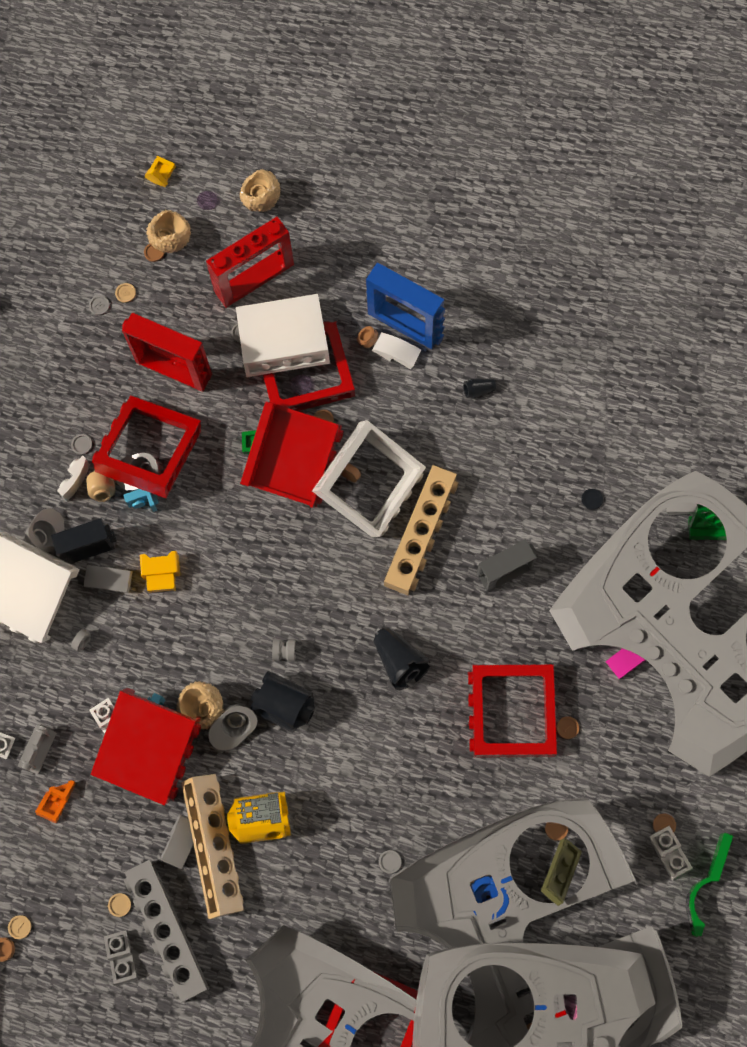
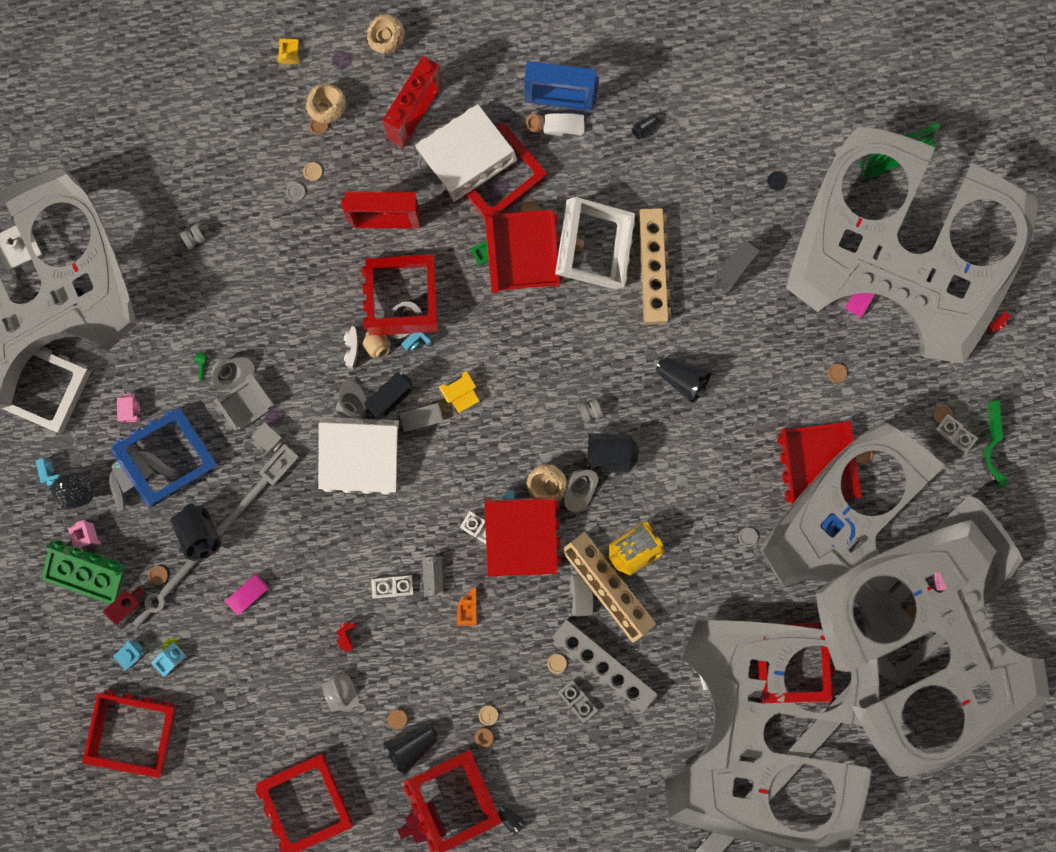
camera: 30 degrees left, 10 degrees up
(81, 444) = (342, 316): light grey piece -> none
(81, 640) = (425, 473): light grey tile -> none
(488, 750) = (766, 400): red piece -> none
(499, 794) = (809, 451): none -> red panel
(561, 871) = (883, 485): olive tile -> none

